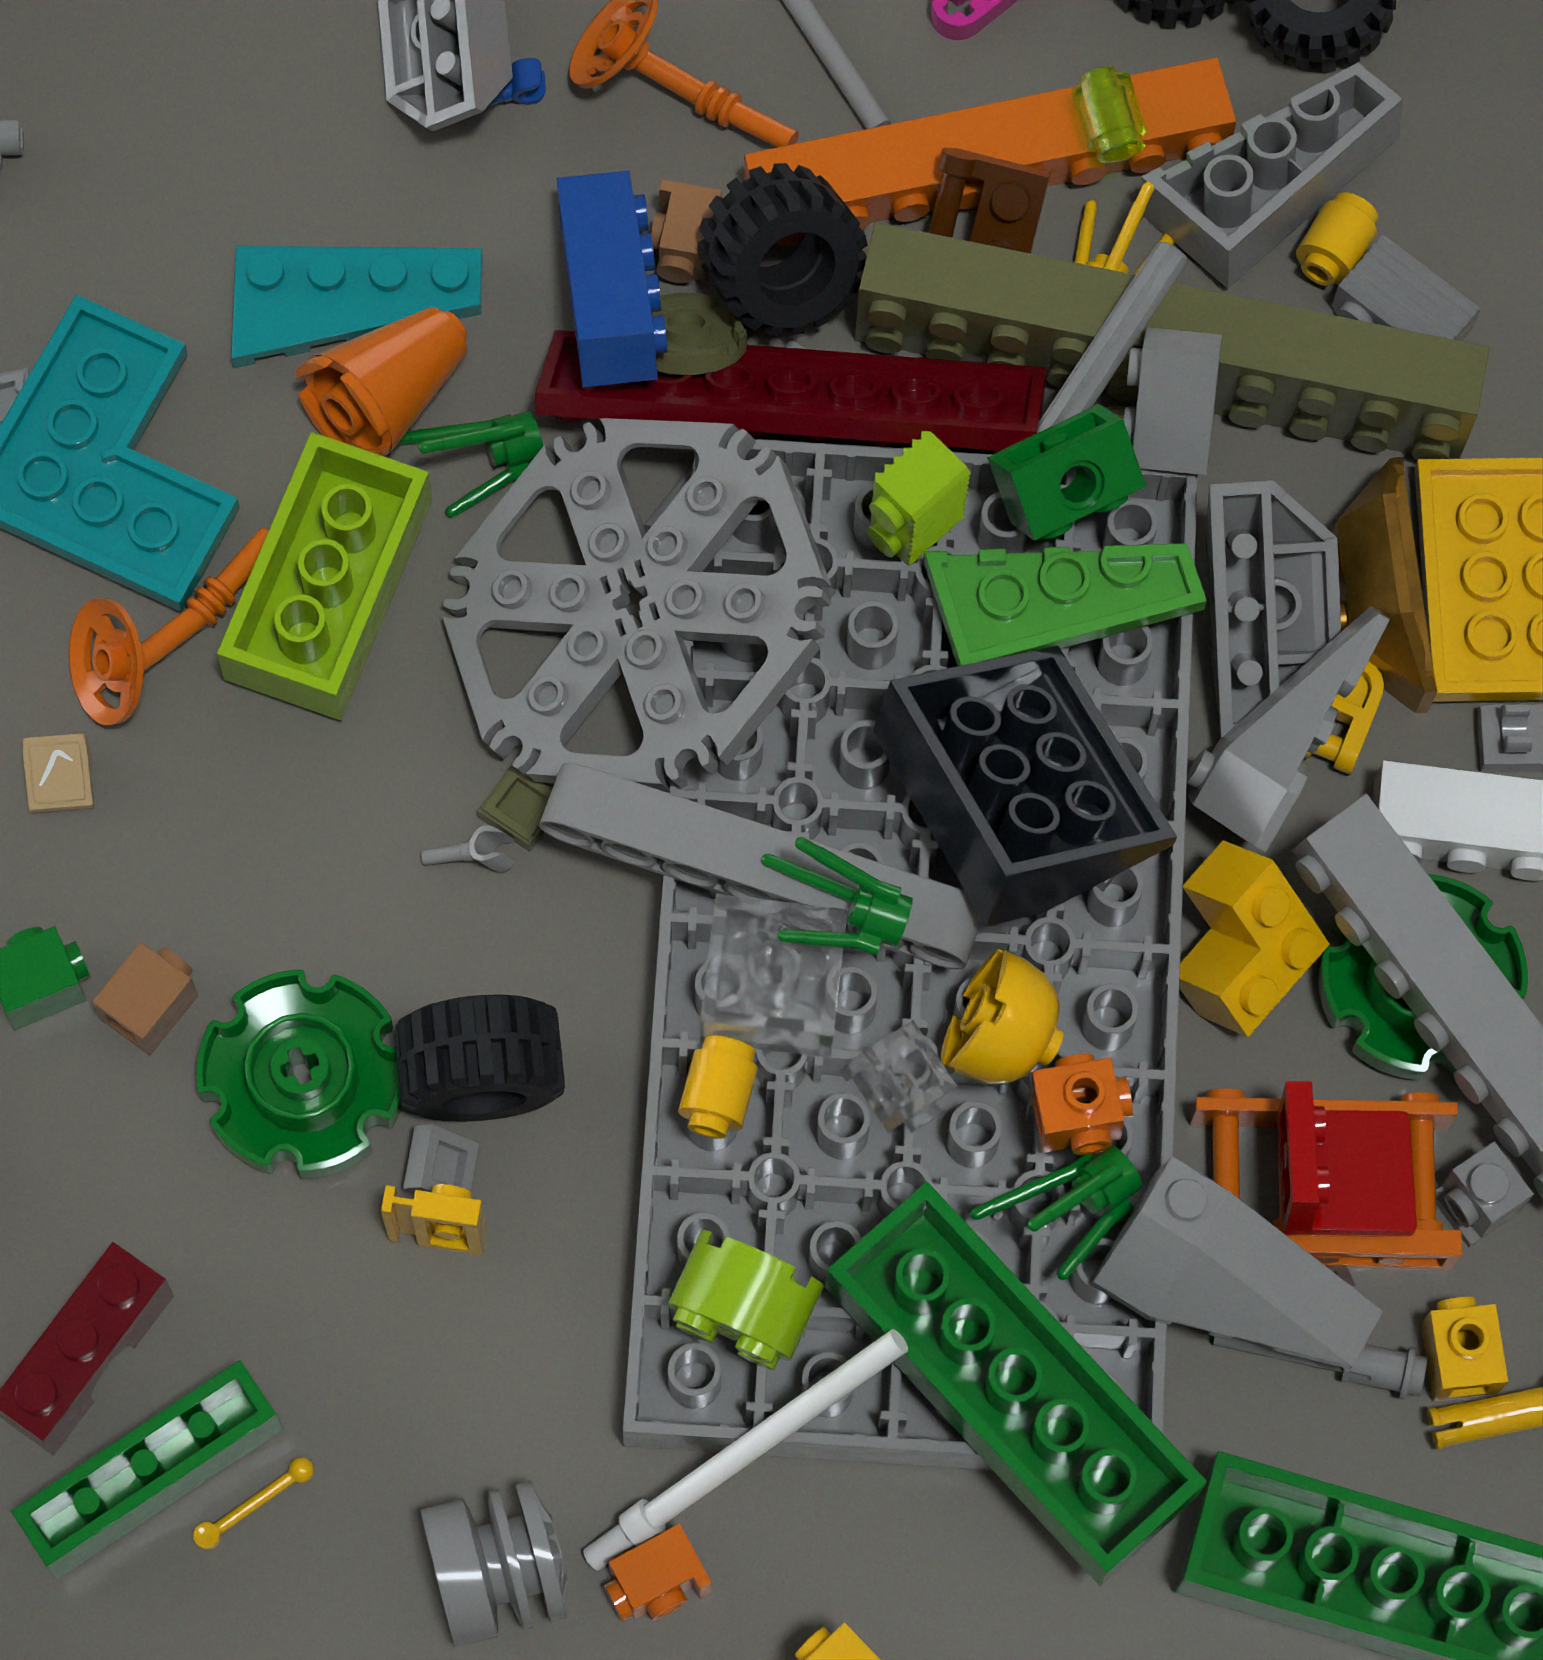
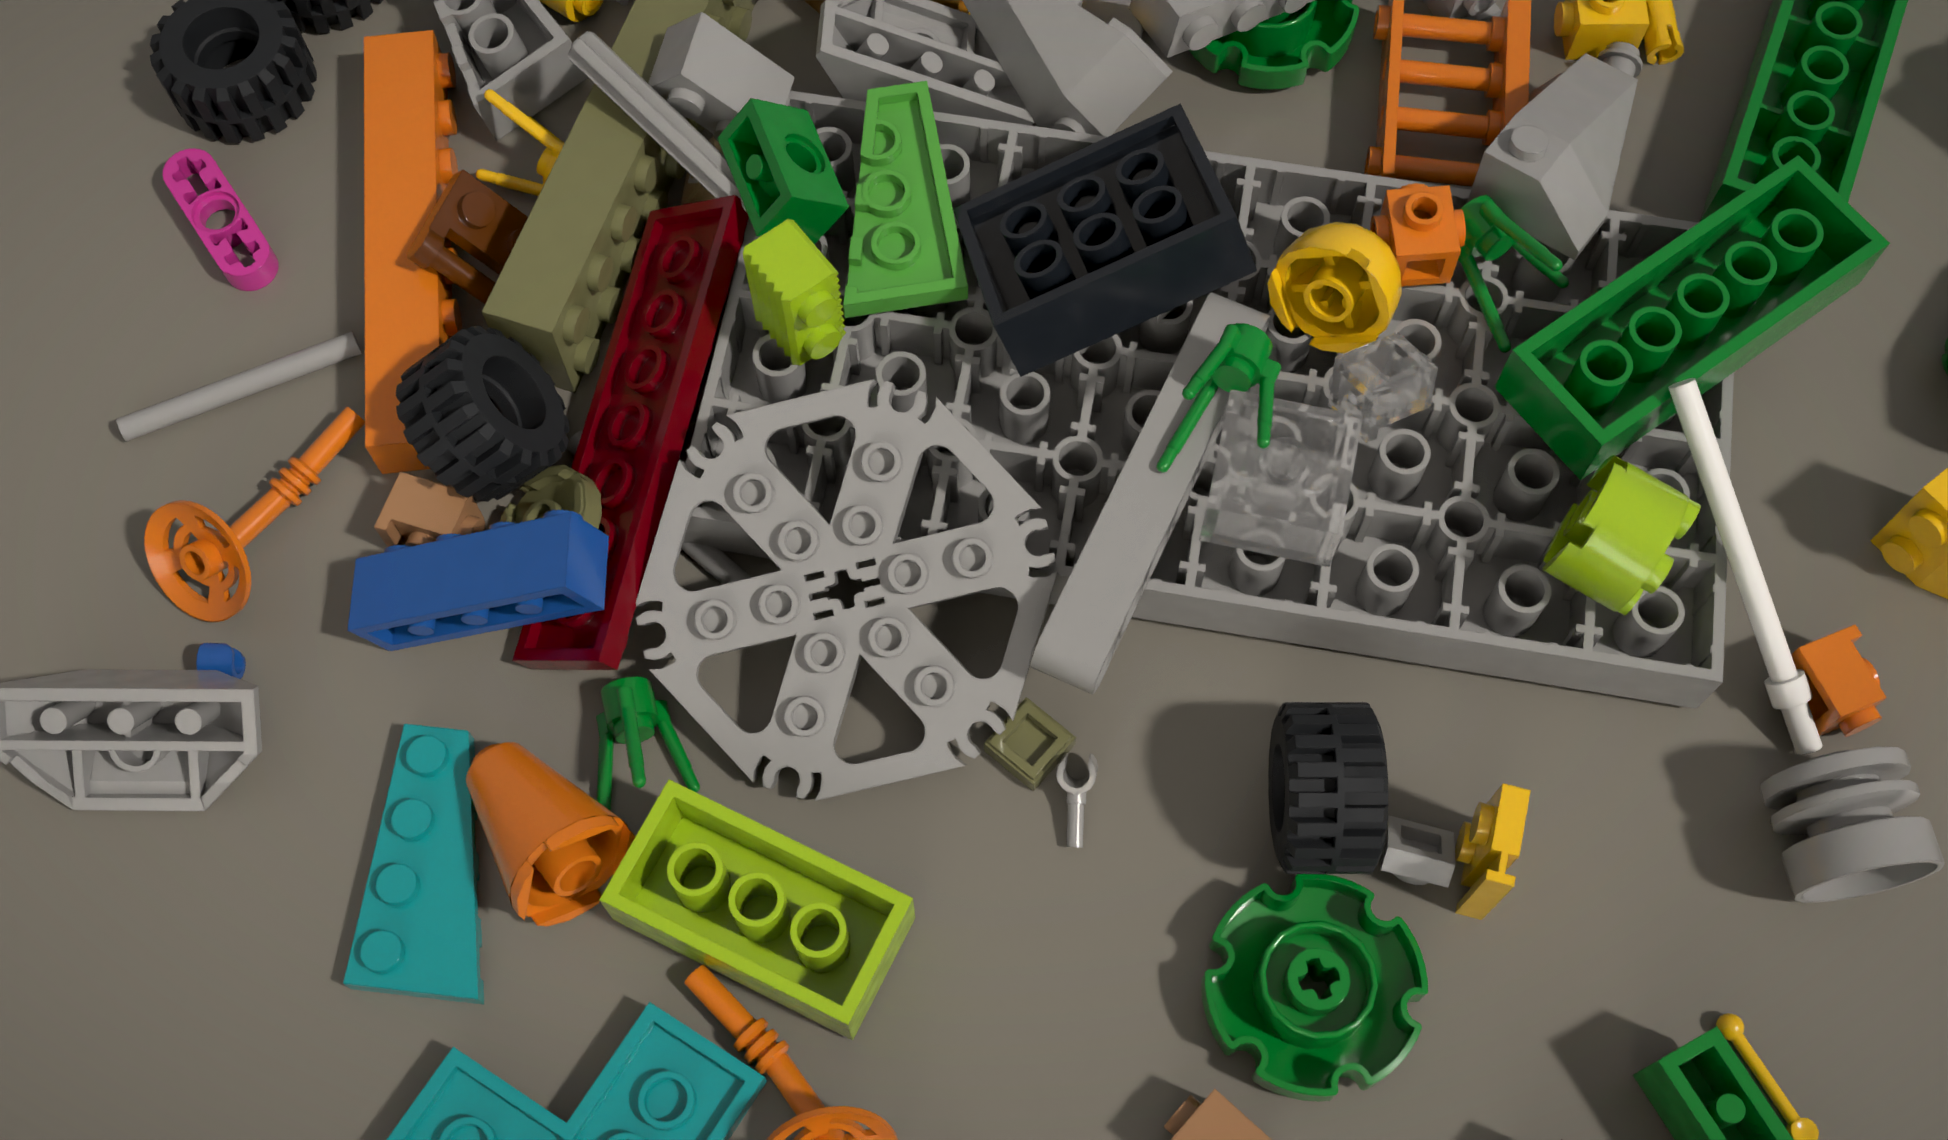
camera: 80 degrees left, 5 degrees down
(718, 1086) = (1385, 547): yellow brick -> none
(1109, 114) = (405, 116): clear neon green brick -> none
(1256, 939) = (1239, 111): yellow brick -> none
(1343, 1169) = (1460, 65): red bracket -> none

